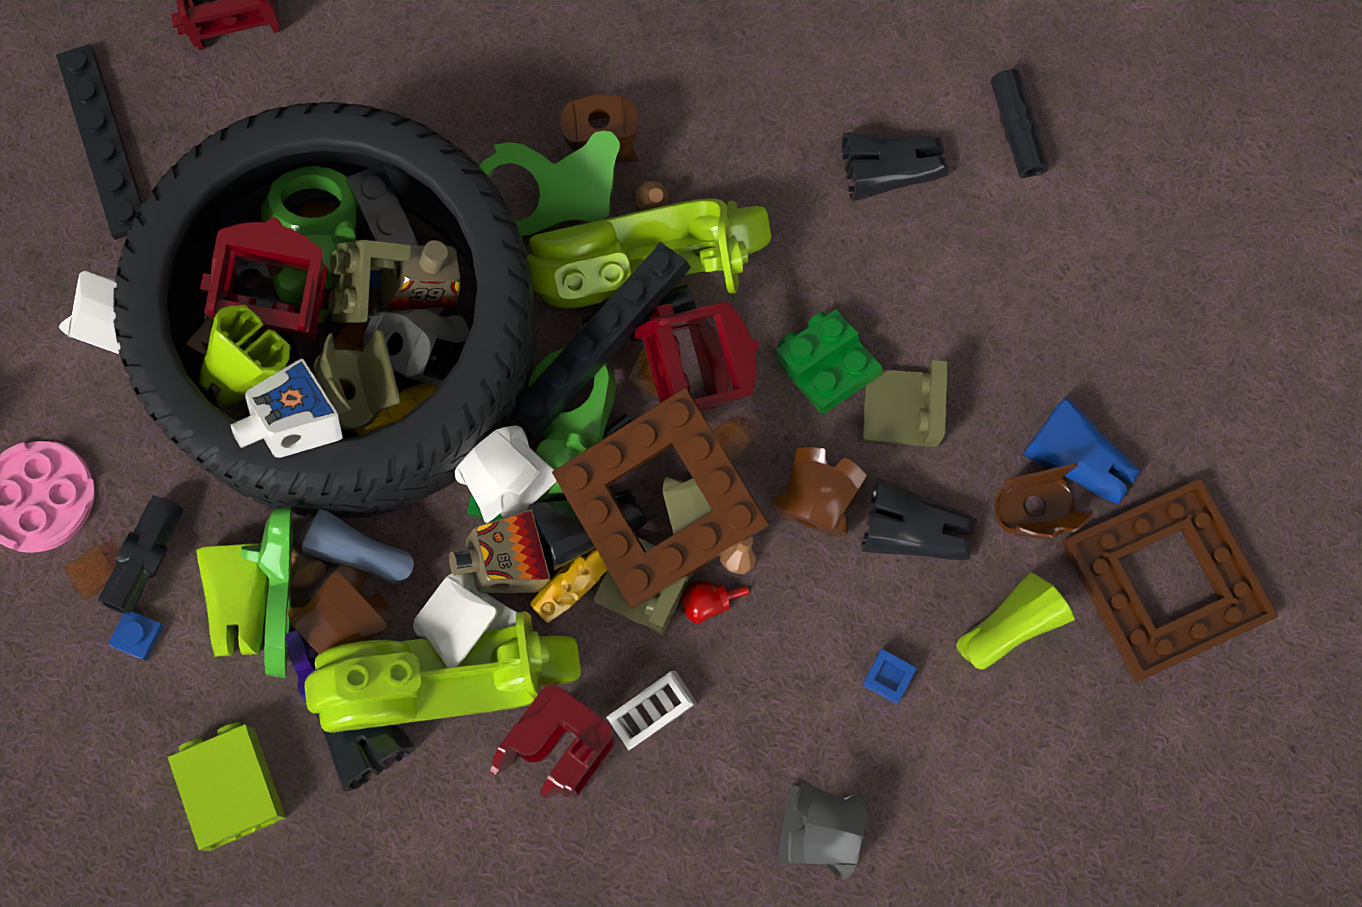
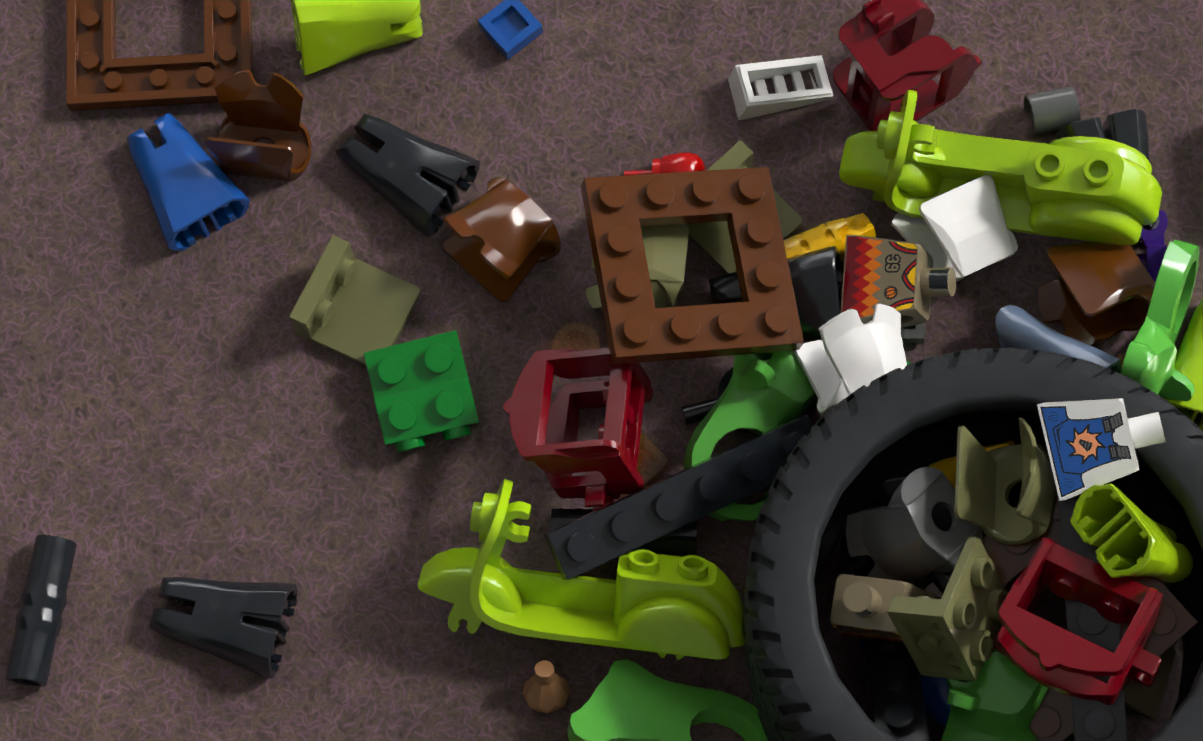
camera: 155 degrees left, 0 degrees up
(422, 768) = (1052, 109): none -> dark grey beam

